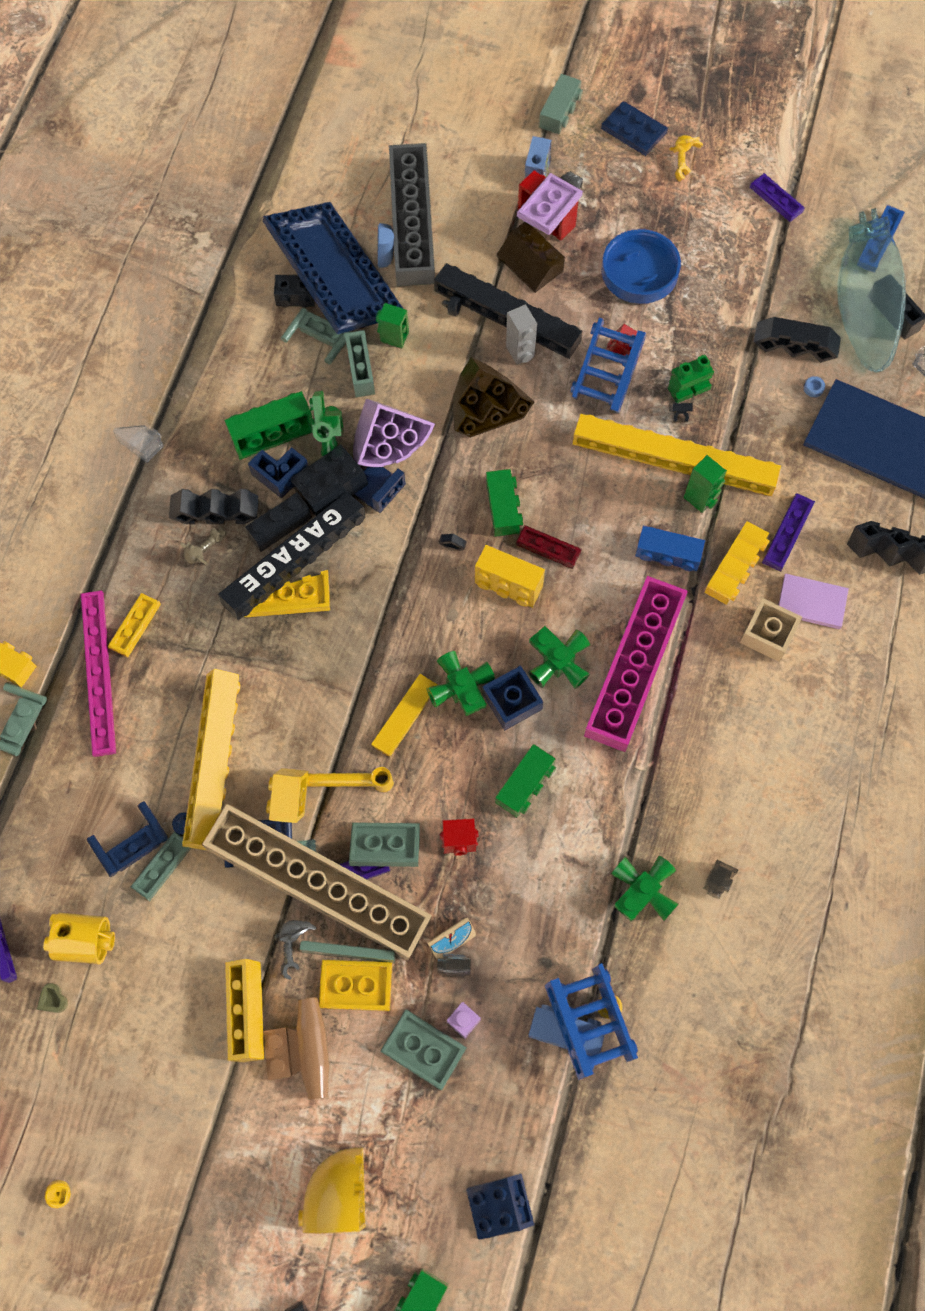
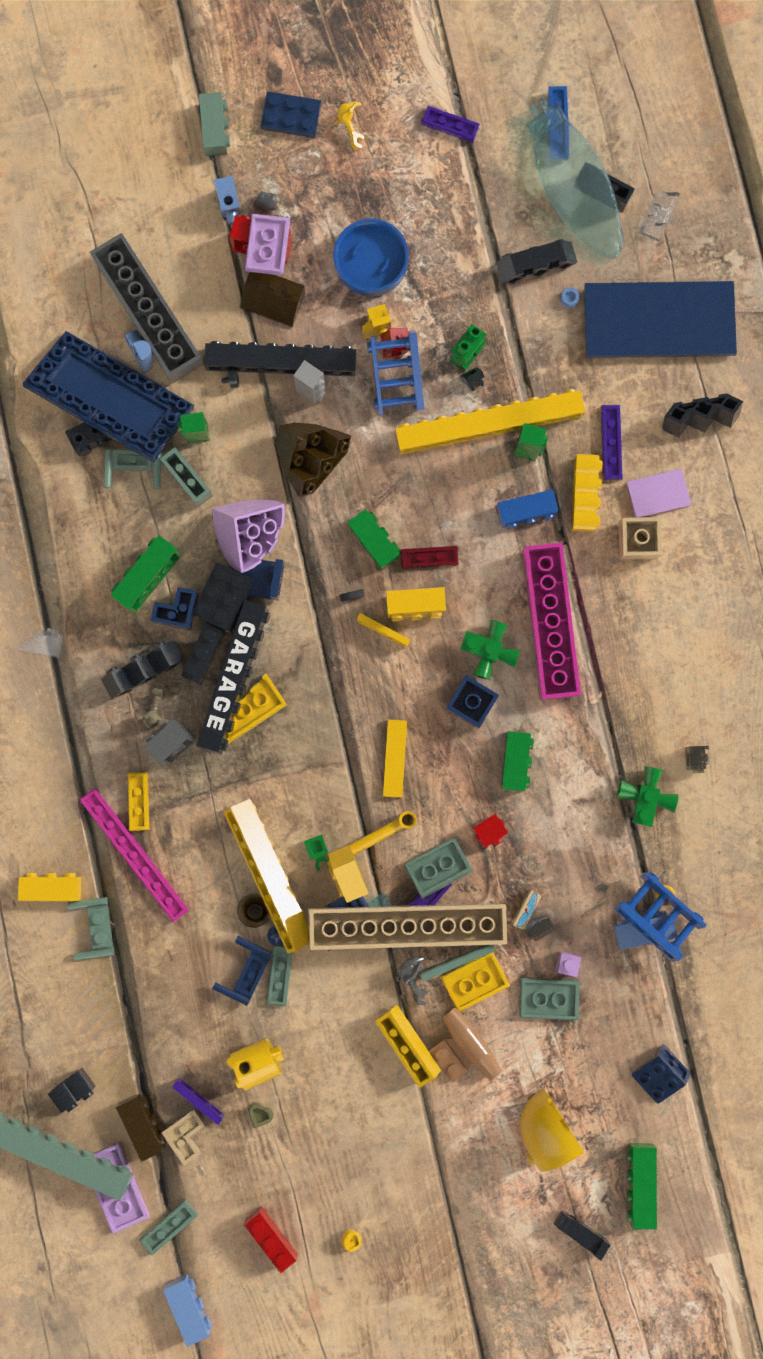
camera: 35 degrees left, 15 degrees up
(174, 787) = (252, 911): none -> dark brown hat
(194, 578) = (169, 742): none -> dark grey brick
(274, 759) = (316, 849): none -> green plate
(326, 423) = (194, 550): green brick -> none
(461, 684) = (427, 712): green brick -> none
(464, 588) = (383, 630): none -> yellow tile
(616, 316) = (377, 323): none -> yellow brick

